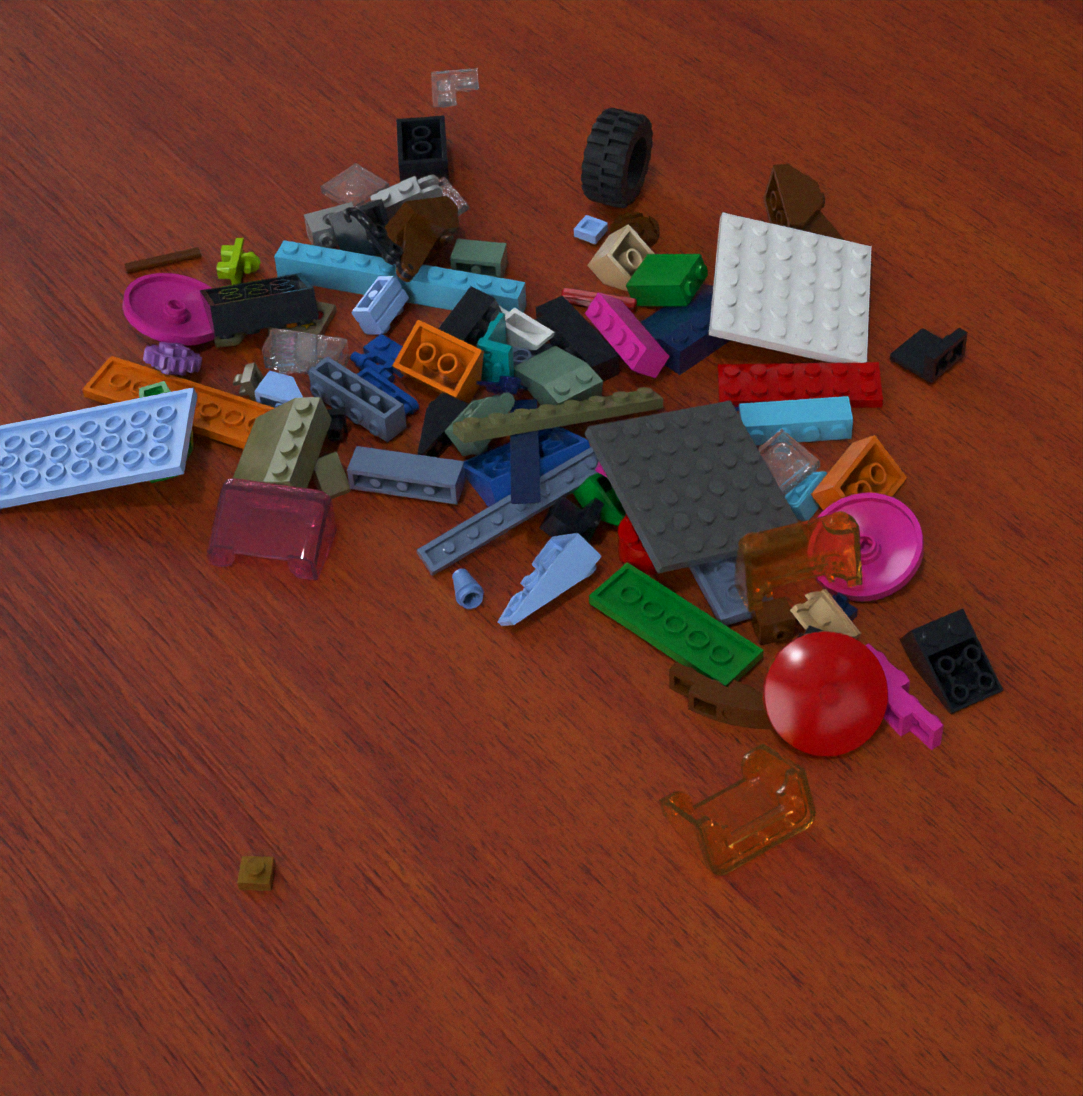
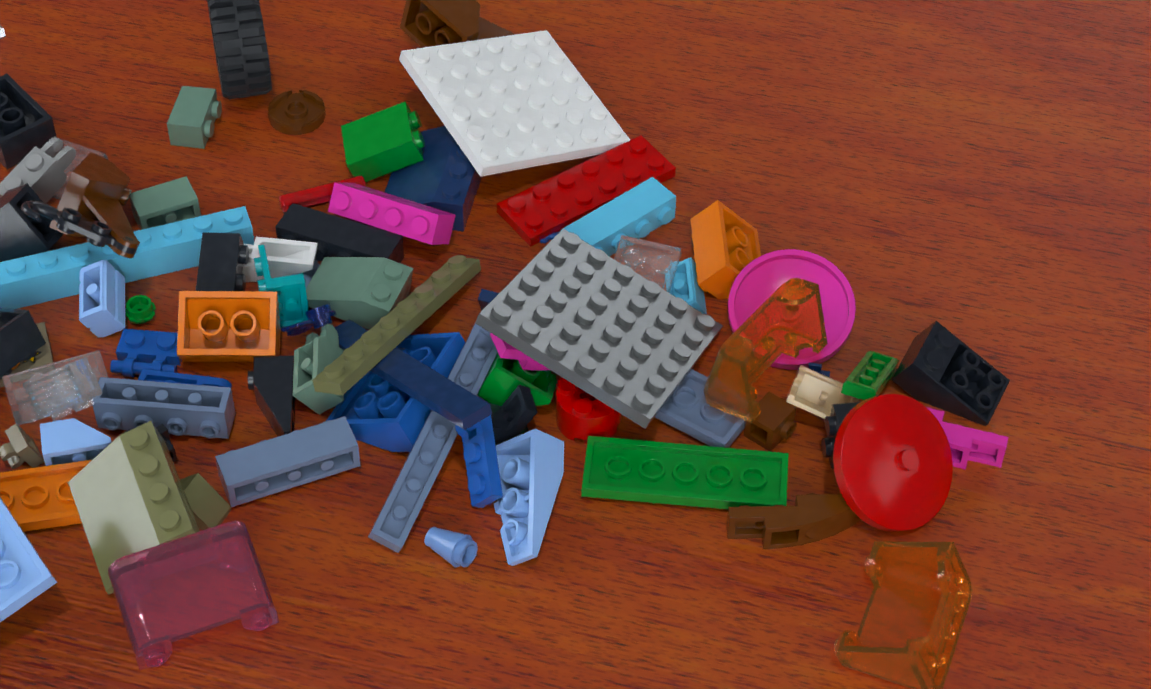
camera: 40 degrees left, 0 degrees up
(402, 325) = (140, 309): none -> green plate
(532, 536) = (481, 463): none -> blue plate
(553, 203) = (193, 117): none -> sand green brick
(590, 229) = (253, 127): light blue plate -> none
(619, 257) = (314, 143): tan slope -> none
(871, 623) = (870, 375): none -> green tile
(929, 354) = (676, 108): black bracket -> none

